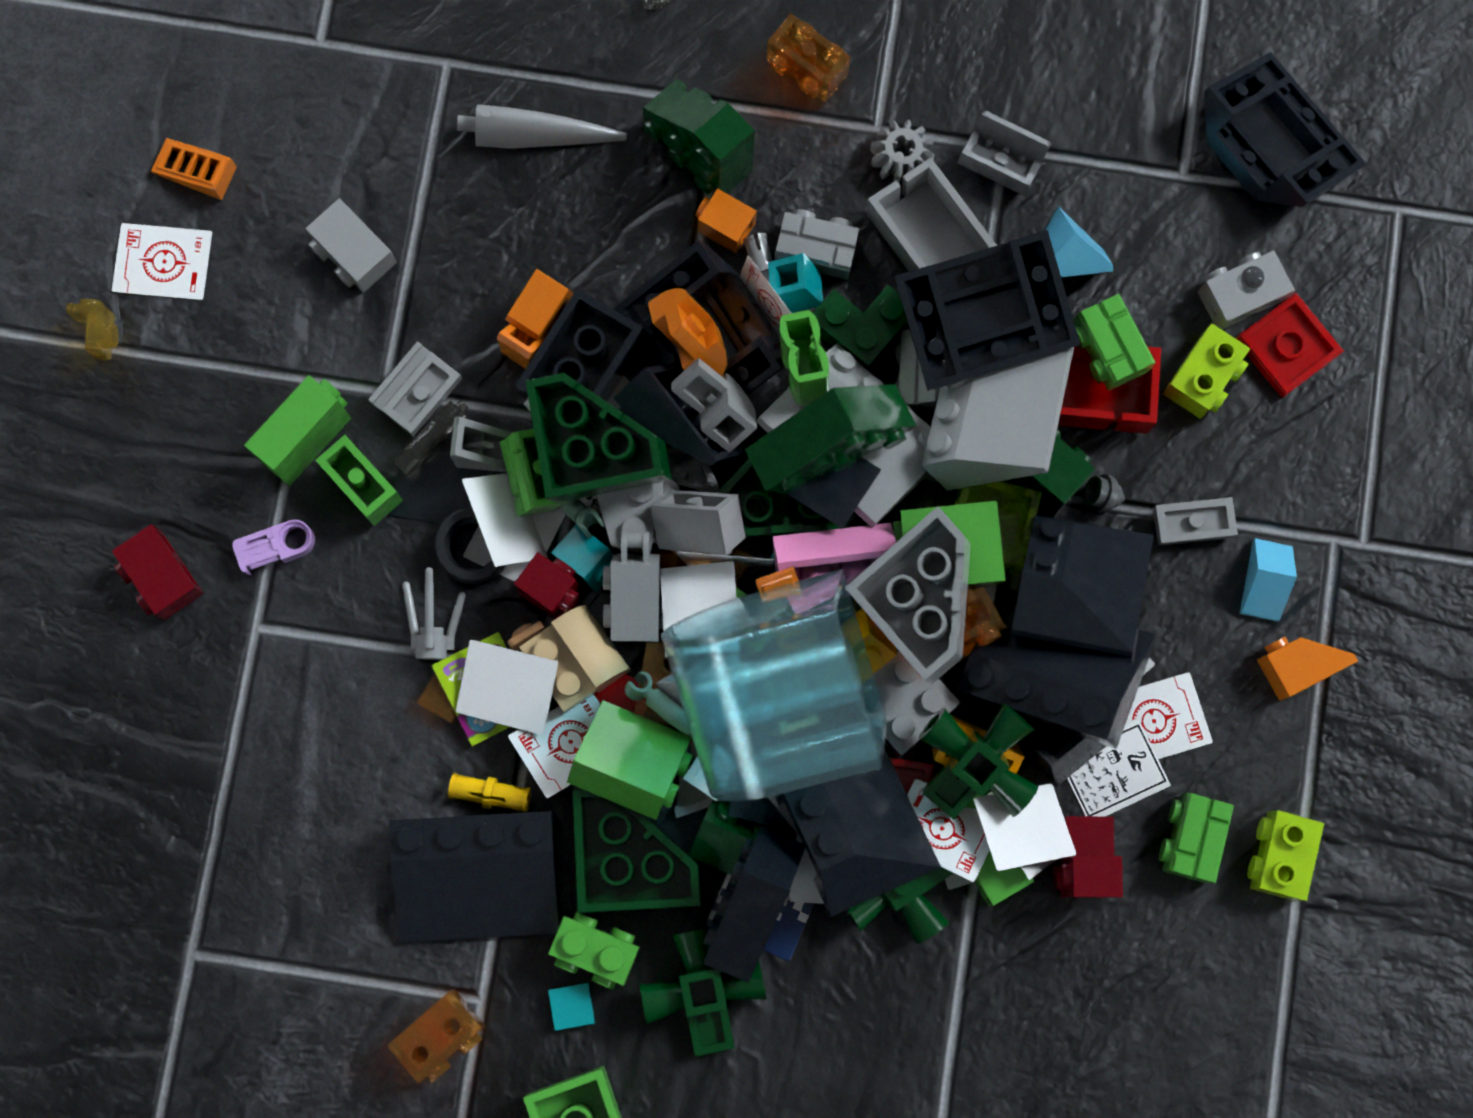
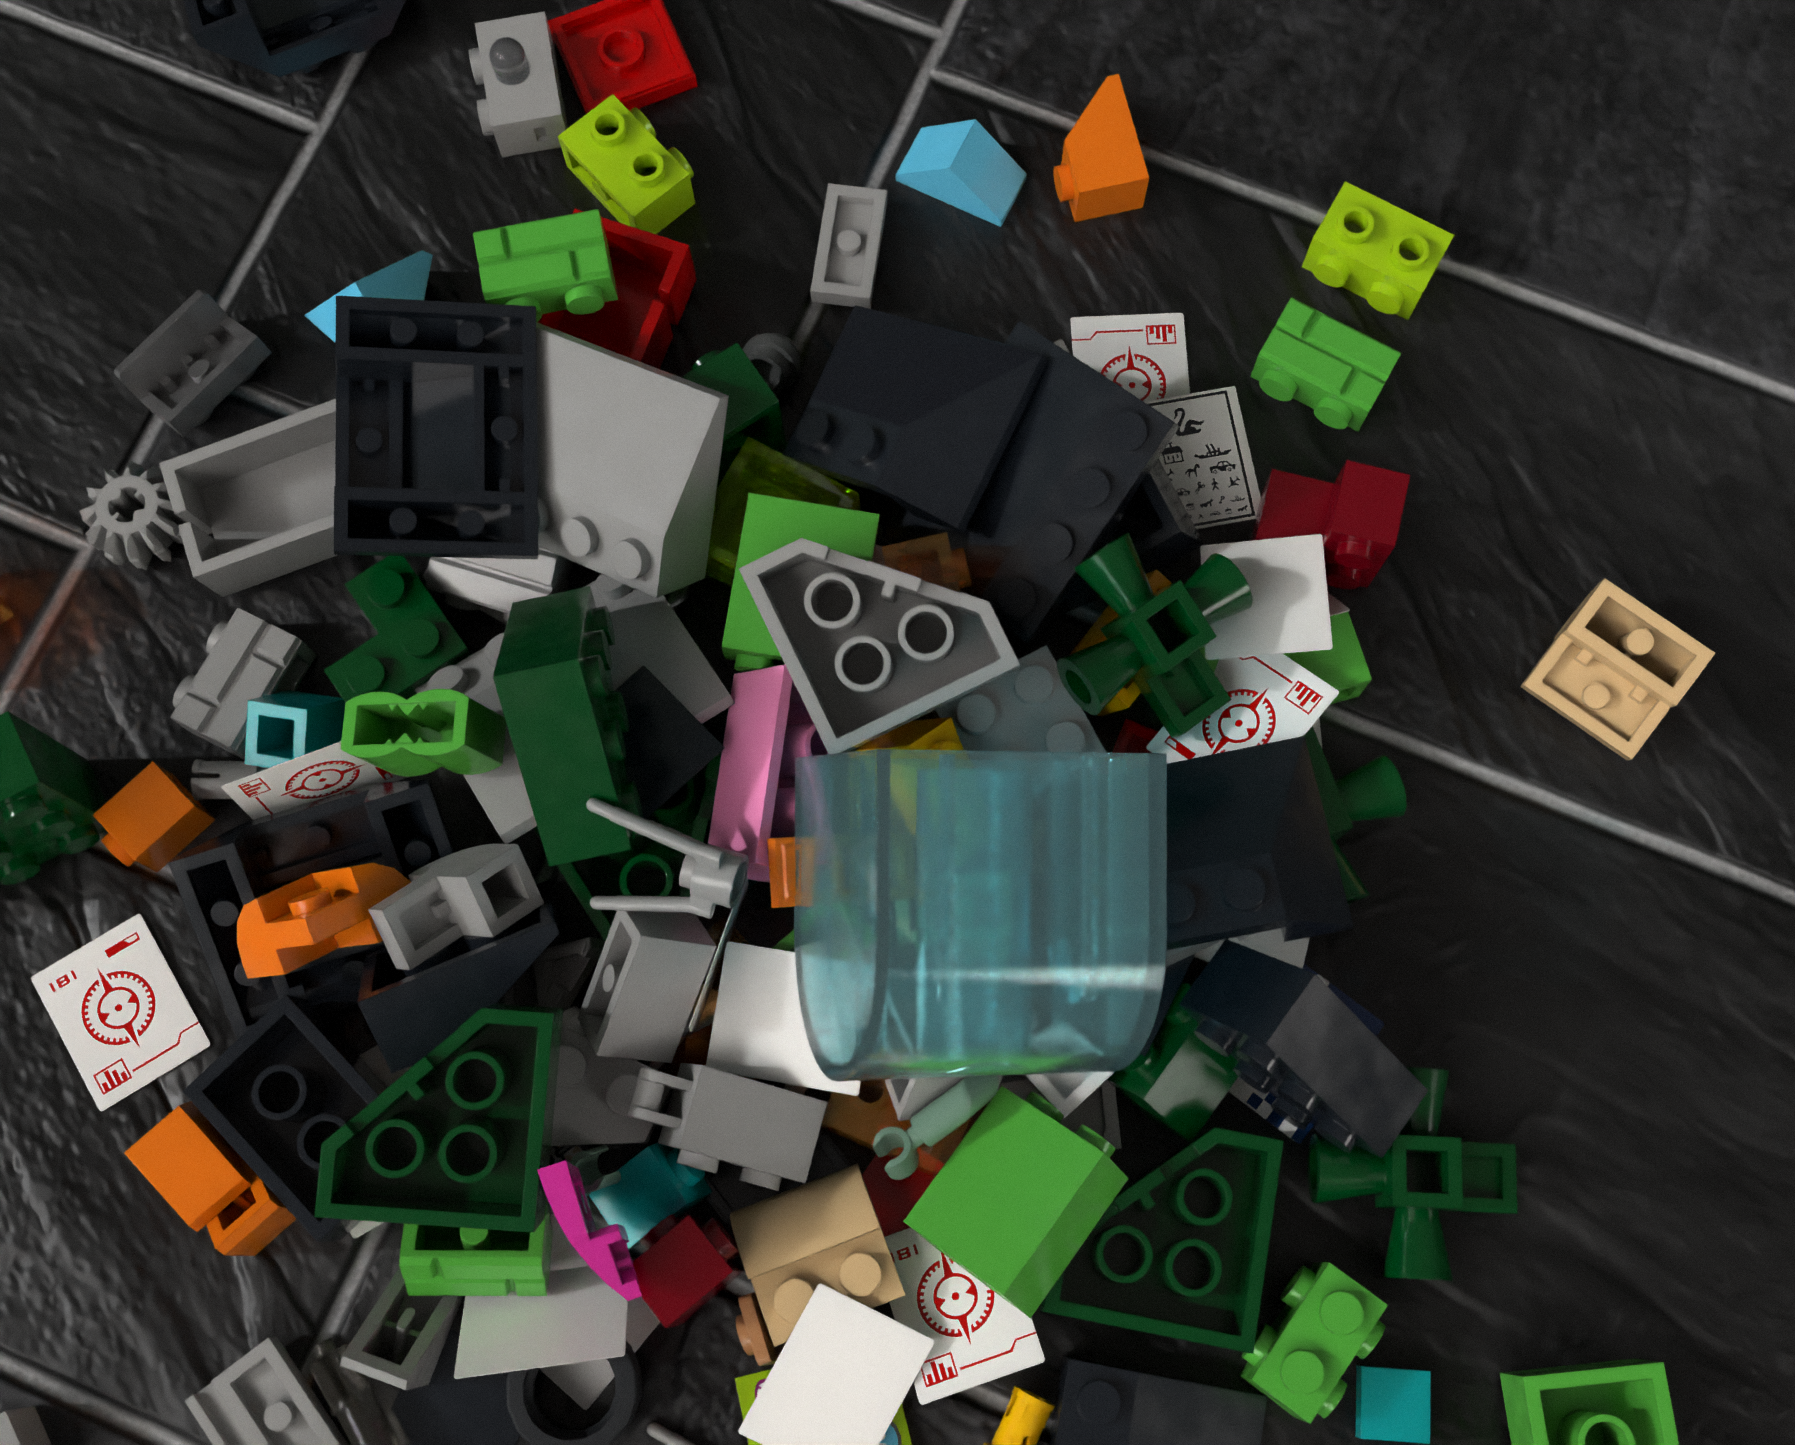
camera: 70 degrees left, 5 degrees down
(558, 518) = (601, 1249): none -> dark pink slope
(615, 237) = (120, 1012): none -> white sticker
(766, 537) = (707, 870): none -> light grey plant
(1041, 1058) = (1617, 669): none -> tan brick

